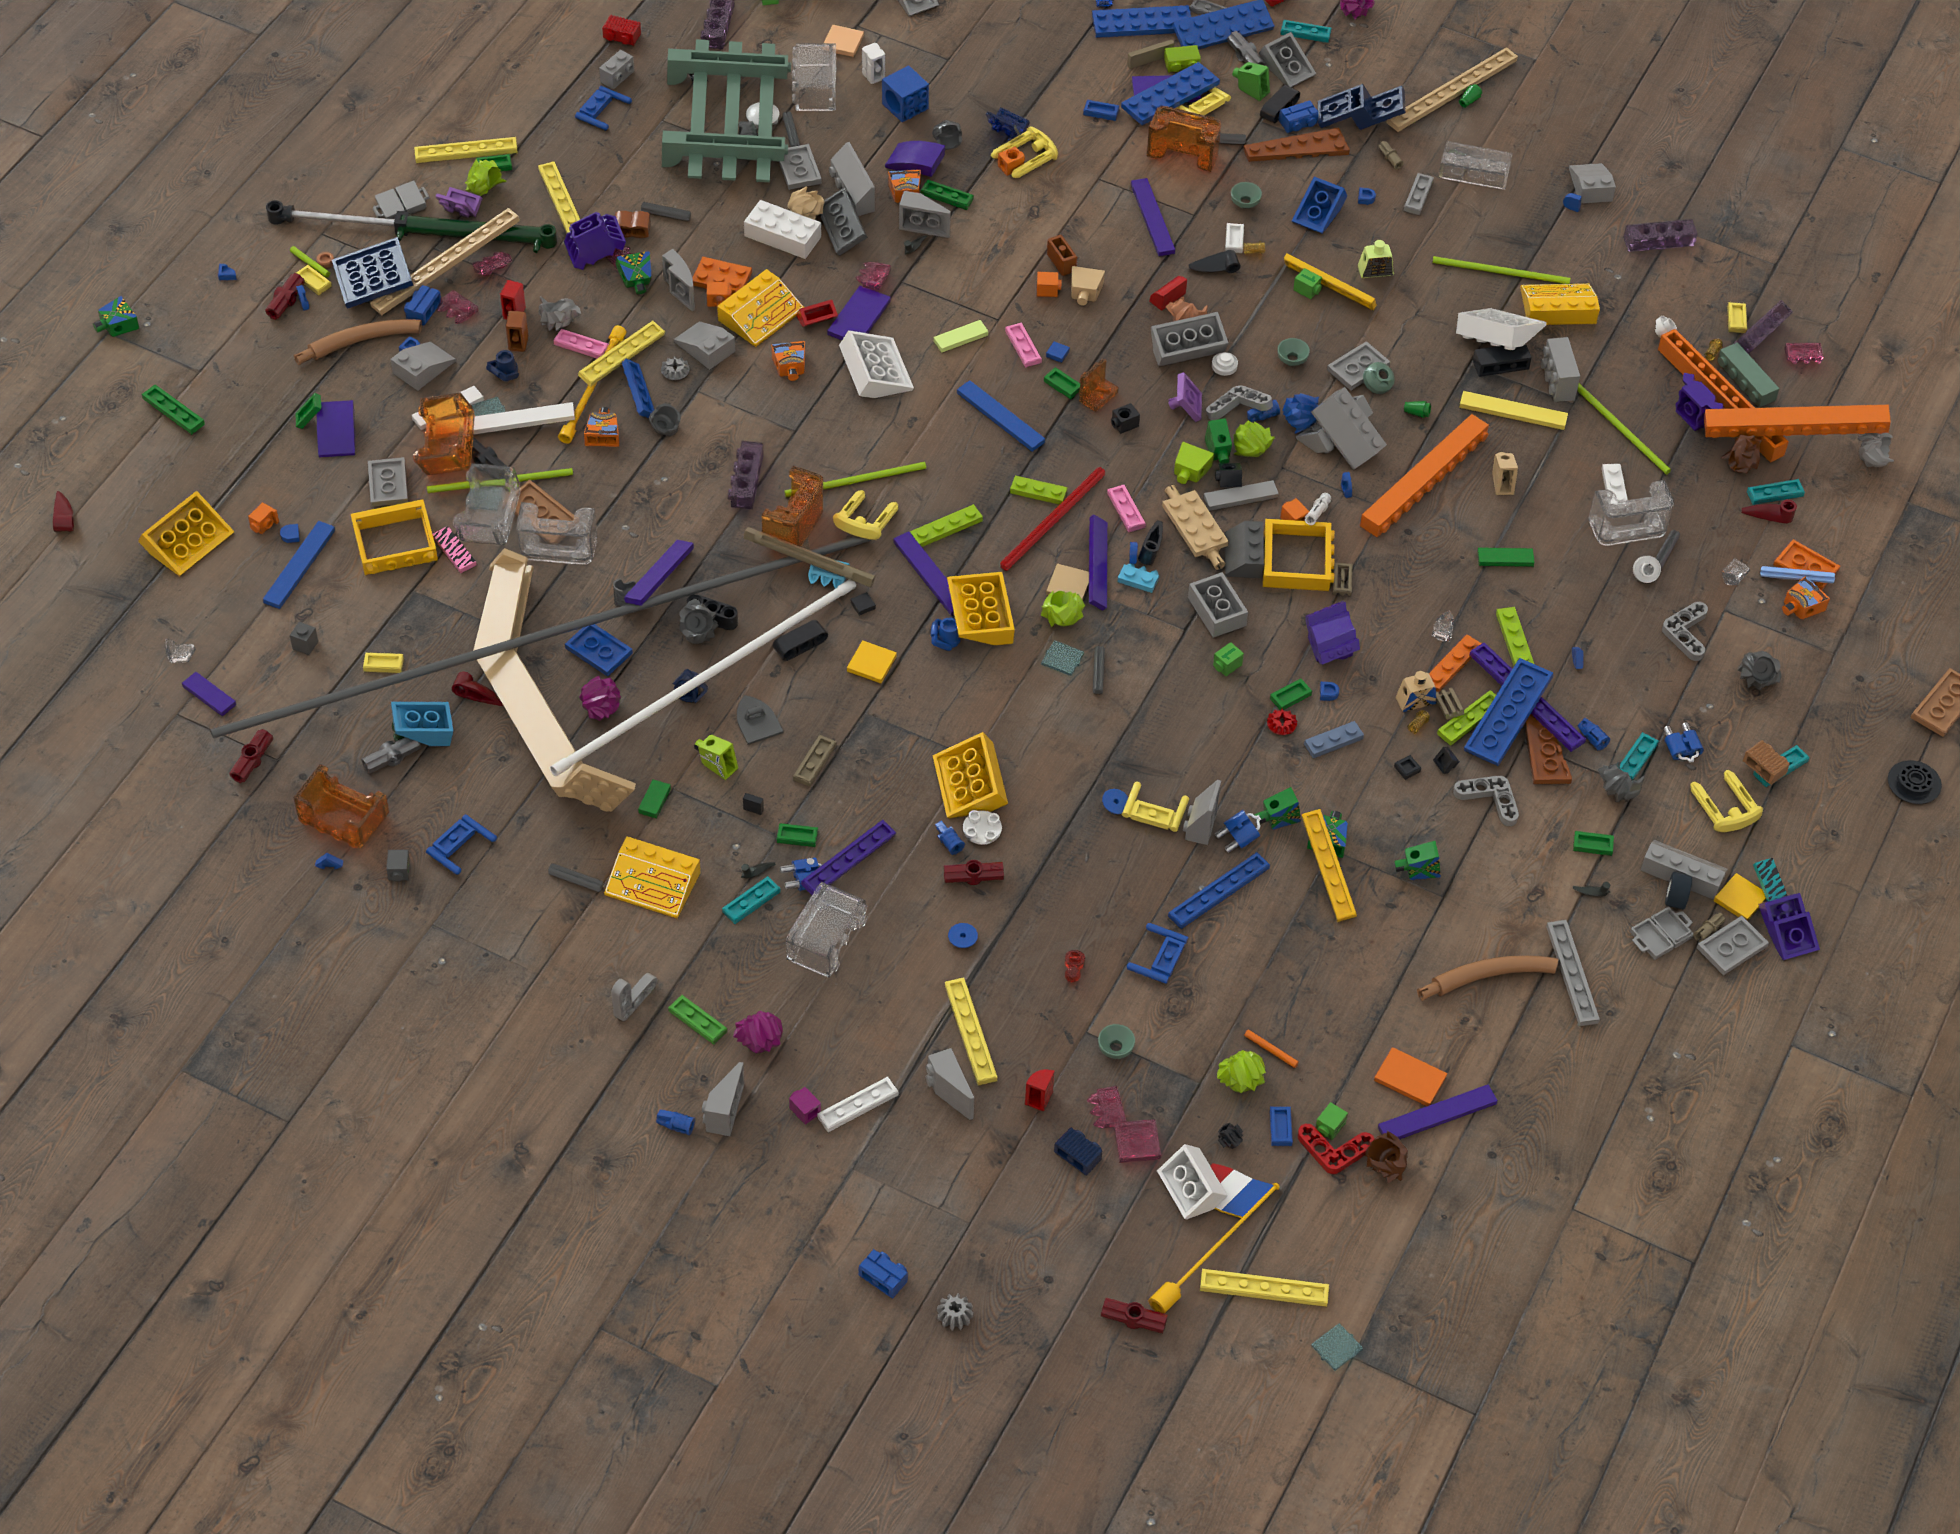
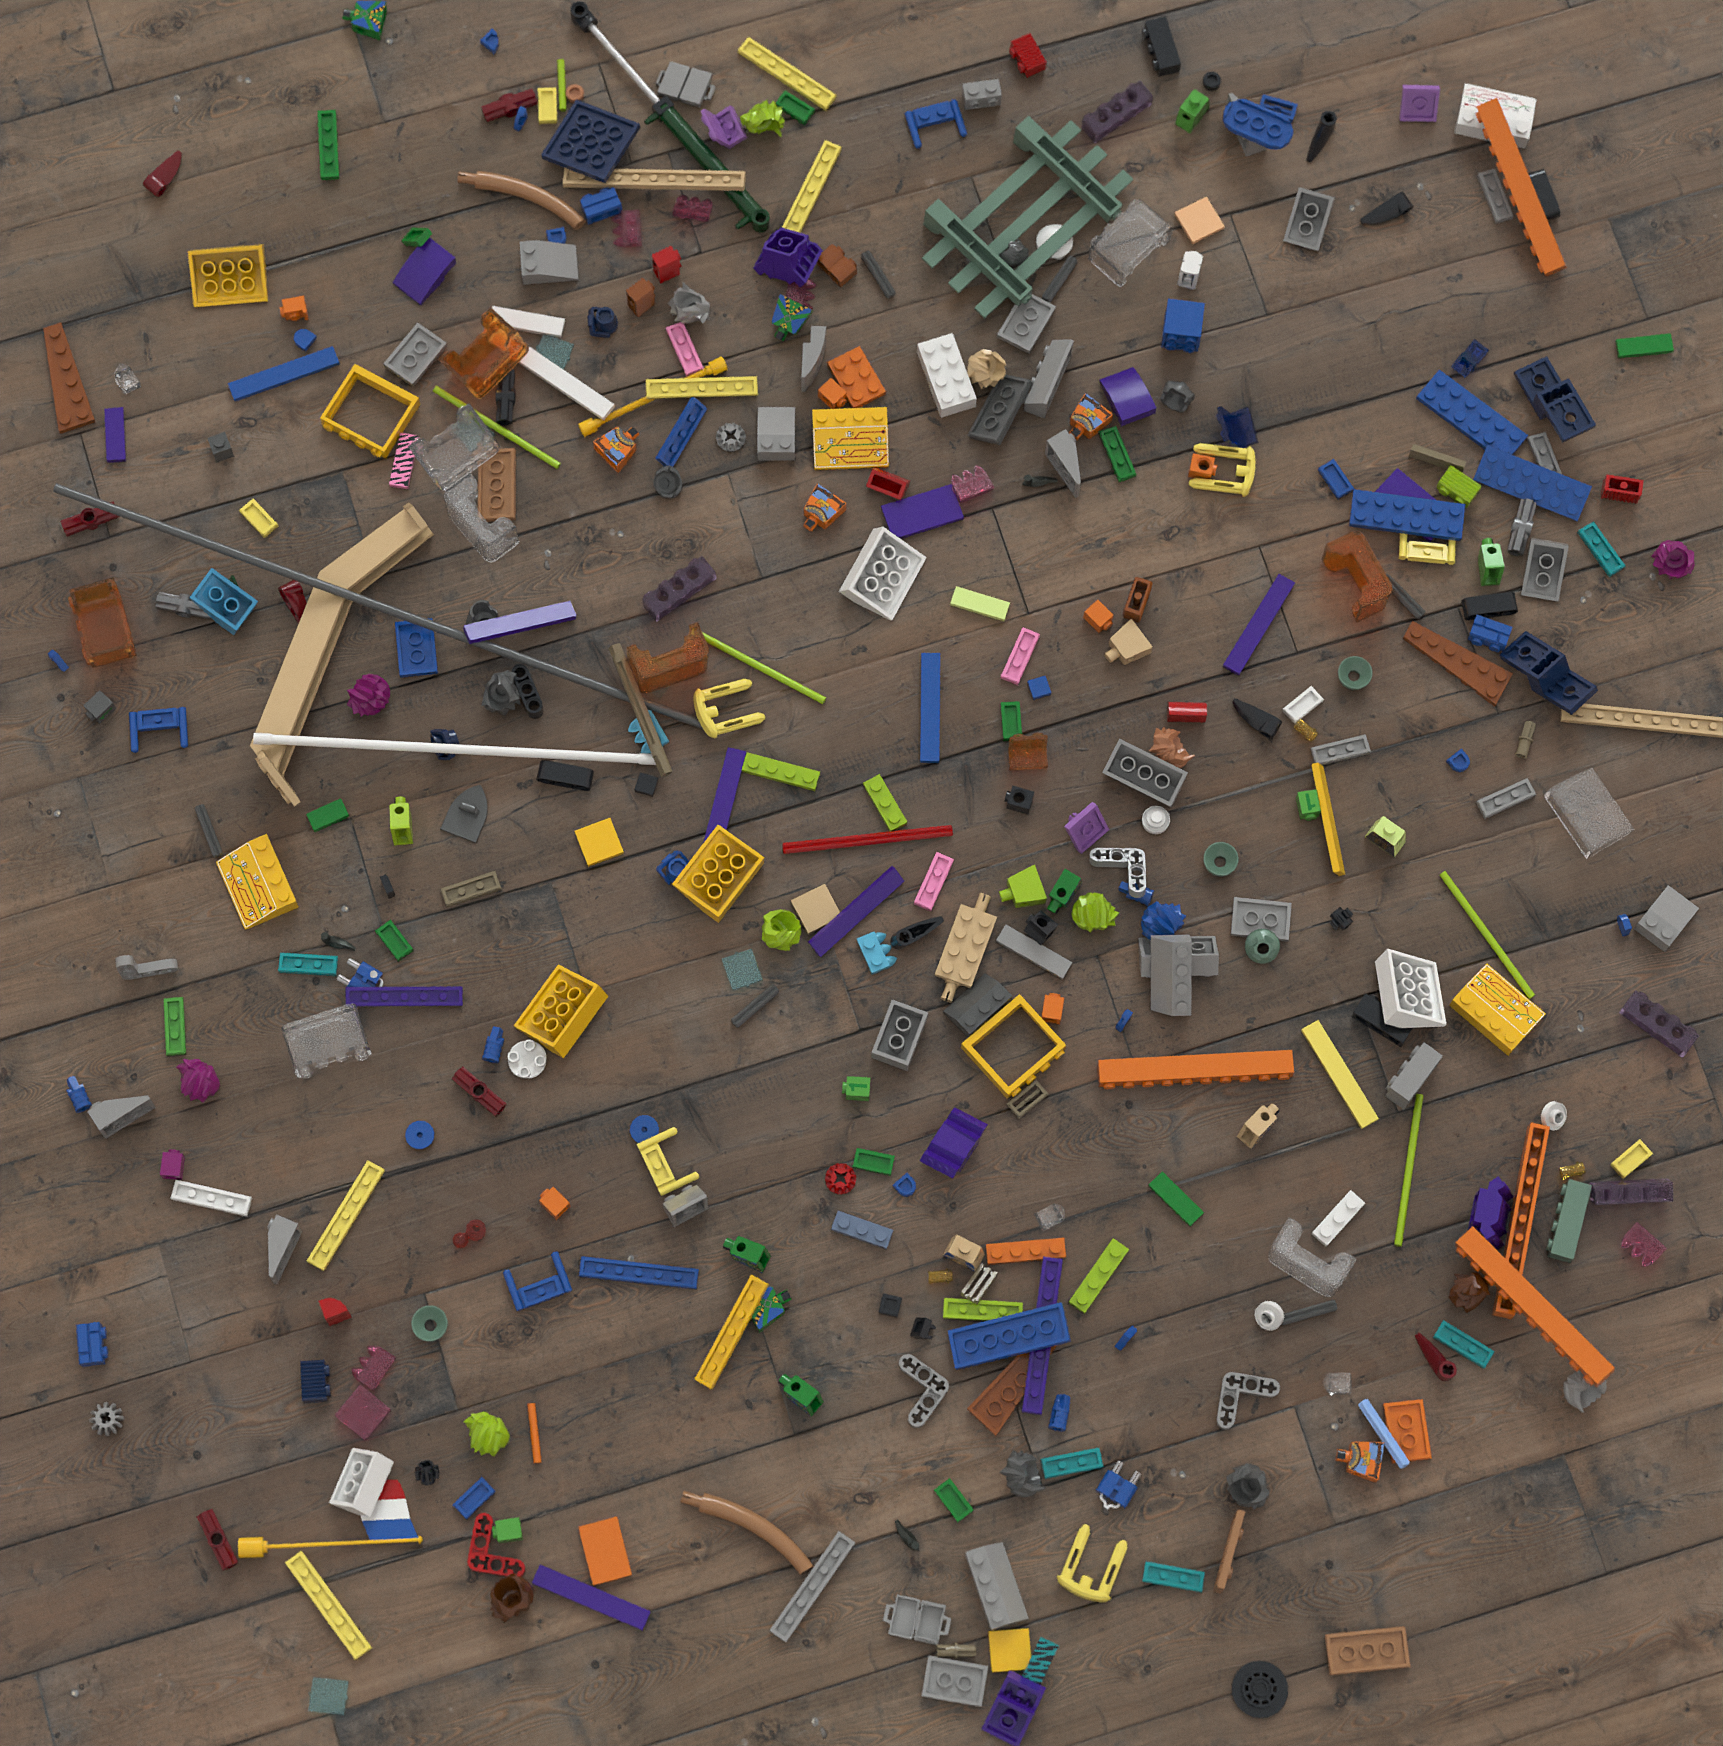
camera: 45 degrees right, 20 degrees up
(150, 699) = (68, 391): none -> dark orange wing
(1110, 895) = (554, 1202): none -> orange brick
(1133, 552) = (890, 928): blue tile -> none
(1241, 829) = (705, 1240): blue piece -> none
(1288, 243) = (1341, 750): none -> light grey tile
(1320, 205) = (1404, 738): blue slope -> none
(1320, 505) = (1078, 1020): white pin -> none
(1407, 326) = (1341, 918): none -> black gear
(1418, 408) = (1263, 1004): green cone -> none
(1471, 94) = (1663, 741): green cone -> none
(1678, 890) = (961, 1602): black wheel -> none
(1766, 762) = (1156, 1565): medium nougat brick -> none
(1798, 714) = (1234, 1535): none -> medium nougat plate

